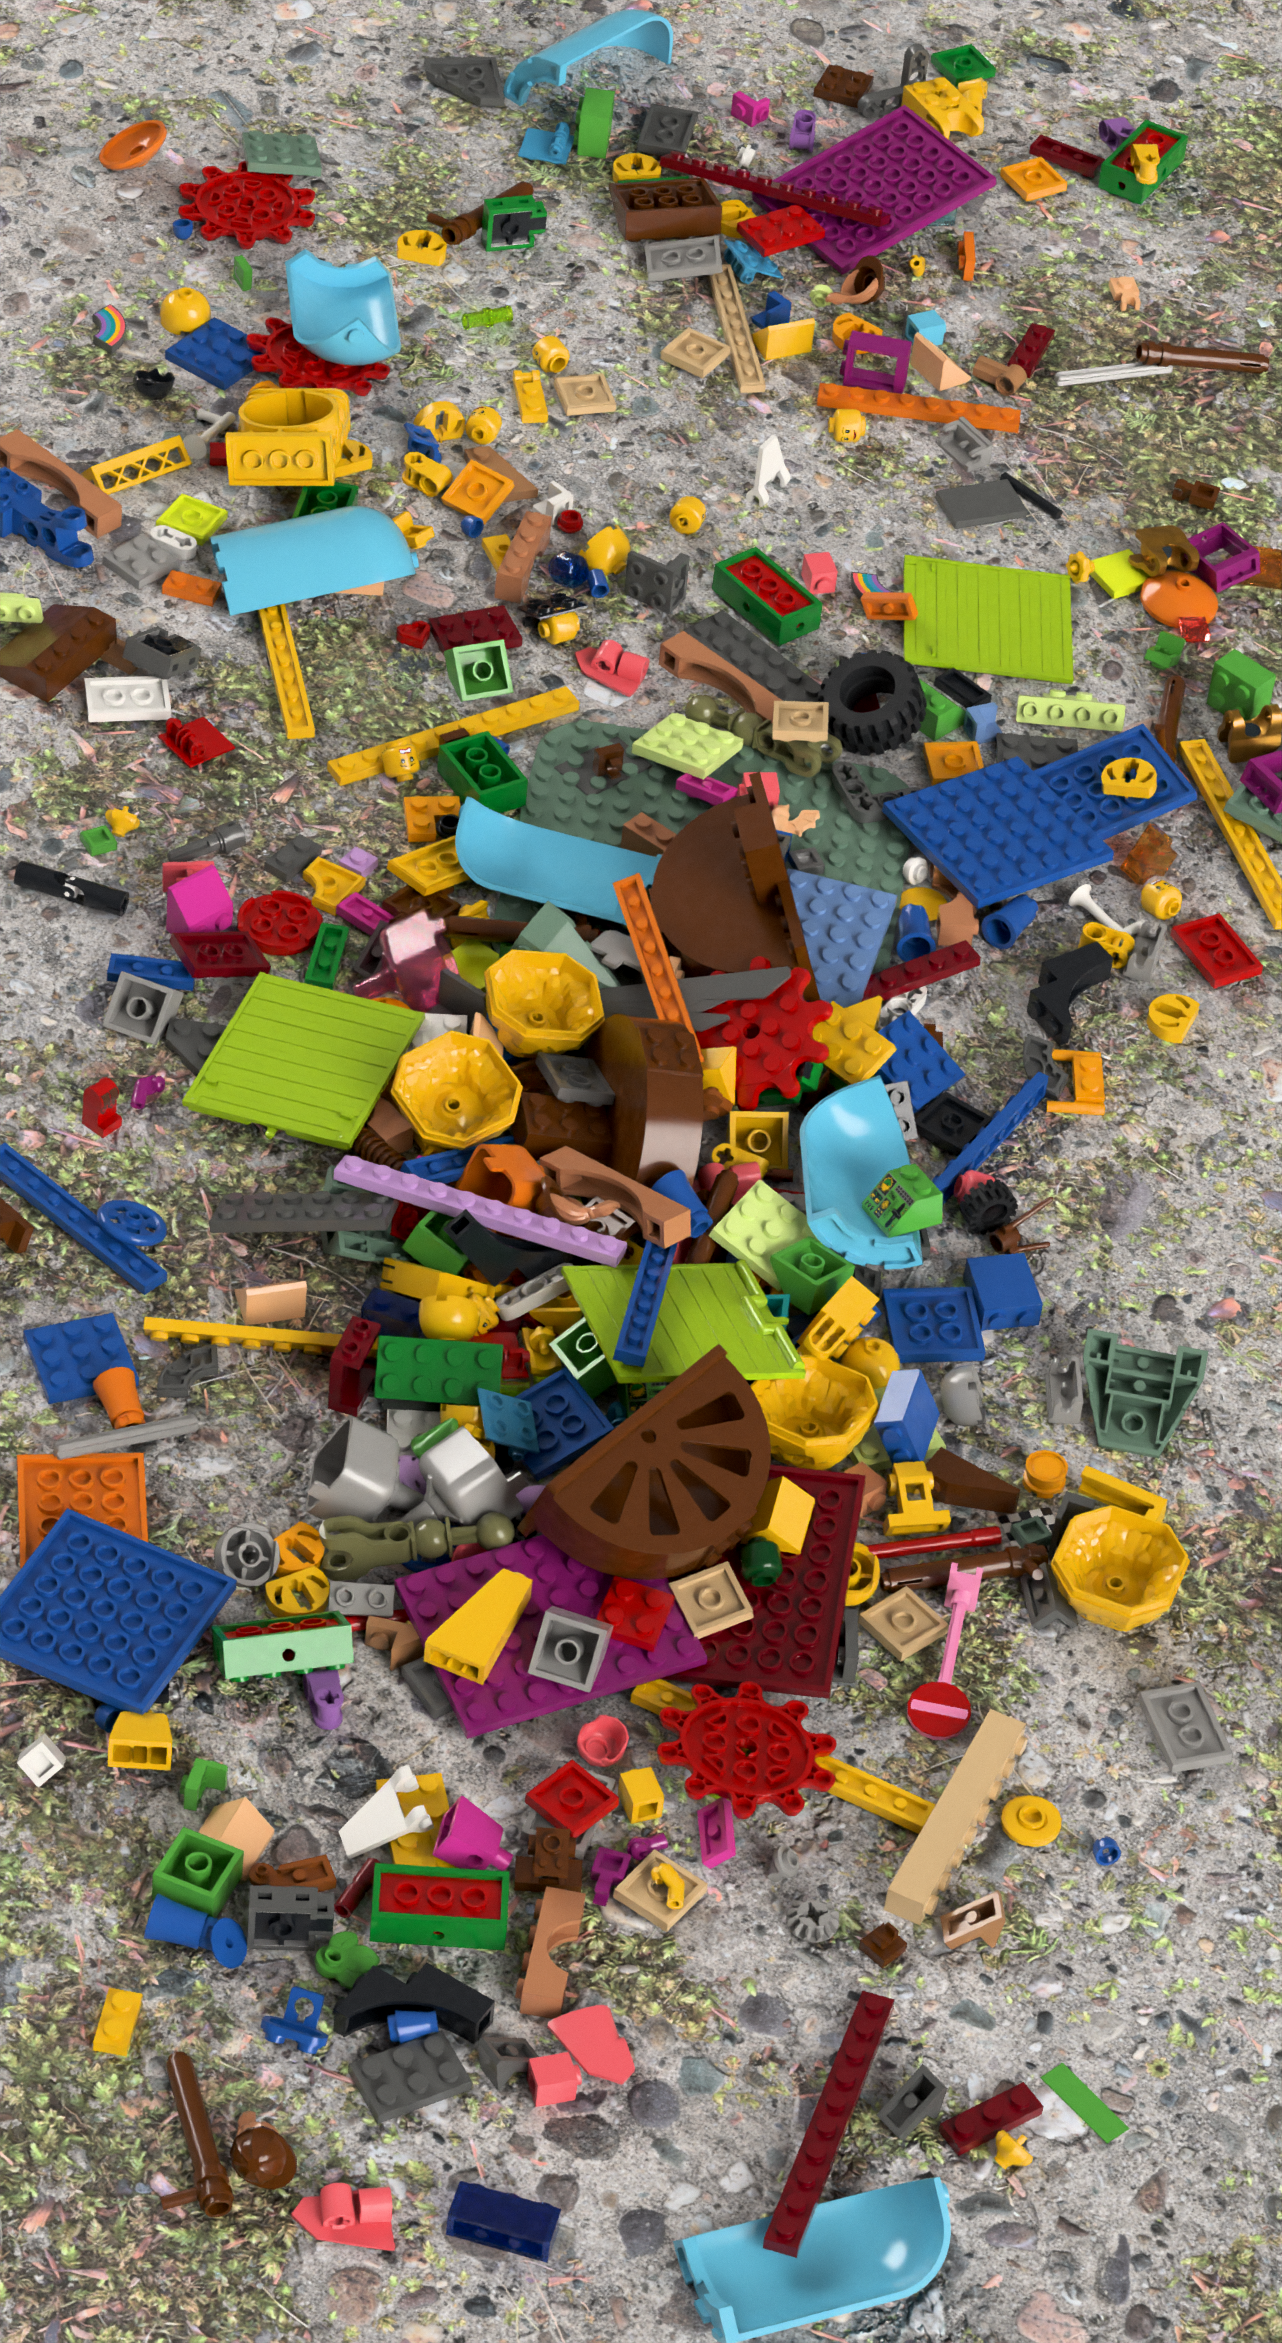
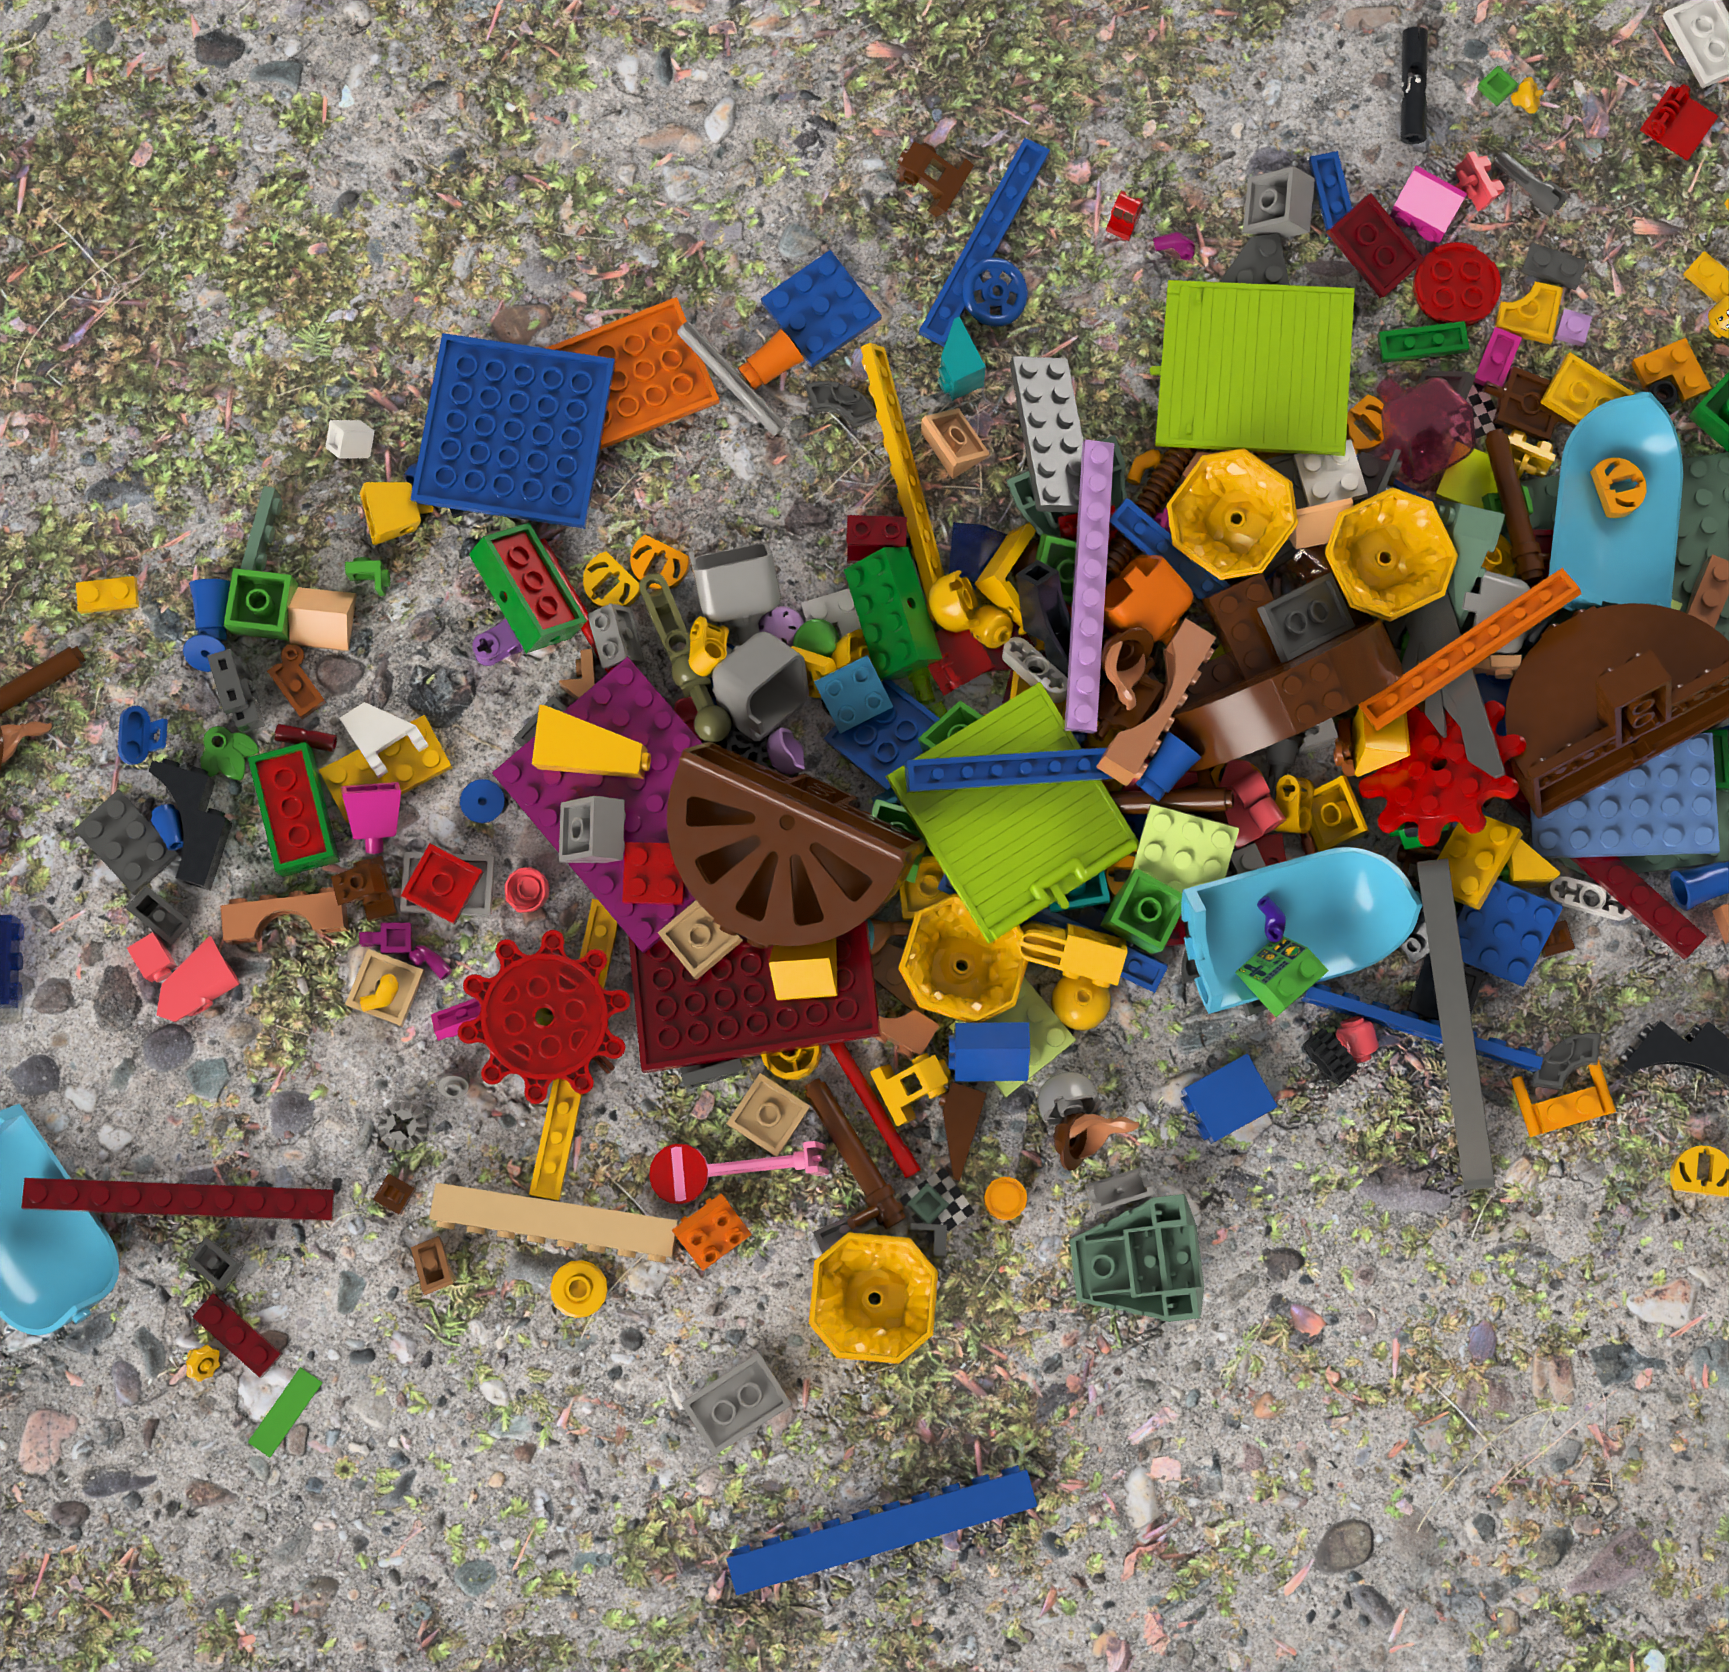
camera: 80 degrees right, 35 degrees up
(110, 1860) = (262, 530): none -> sand green plate
(194, 1258) = (961, 364): none -> teal slope
(247, 1554) = (620, 524): light grey cylinder -> none
(415, 1503) = (707, 646): none -> yellow piece
(489, 1759) = (482, 801): none -> blue piece
(516, 873) = (1613, 502): none -> light orange piece
(542, 1357) = (978, 694): yellow hips -> none
(640, 1795) = (482, 939): yellow brick -> none
(760, 1562) = (748, 967): dark green head -> none
(849, 1196) = (1274, 920): none -> dark purple arm
(933, 1324) = (1160, 1044): blue plate -> none
(994, 1105) = (1456, 1024): none -> dark grey beam
(1000, 1397) = (1084, 1134): none -> piece
(1008, 1236) = (1308, 1083): reddish brown plant -> none
(1009, 1687) = (711, 1231): none -> orange plate
(1113, 1851) = (565, 1364): blue hinge -> none
(1121, 1494) = (999, 1290): yellow hinge -> none

